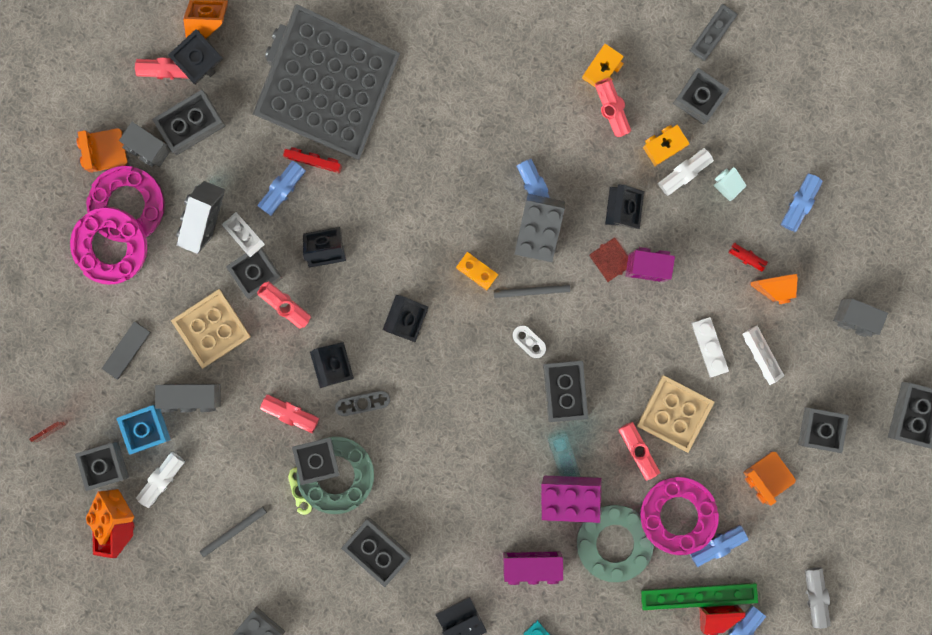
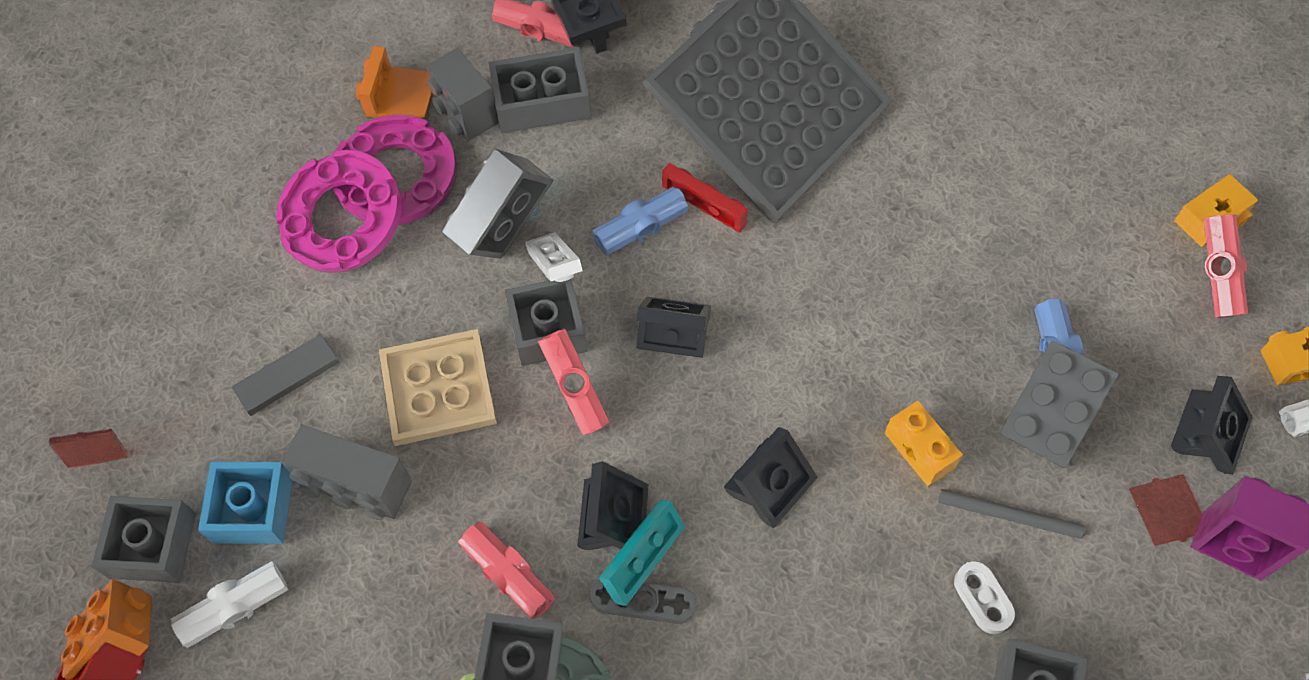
camera: 25 degrees right, 25 degrees down
(354, 381) = (642, 552): none -> teal plate

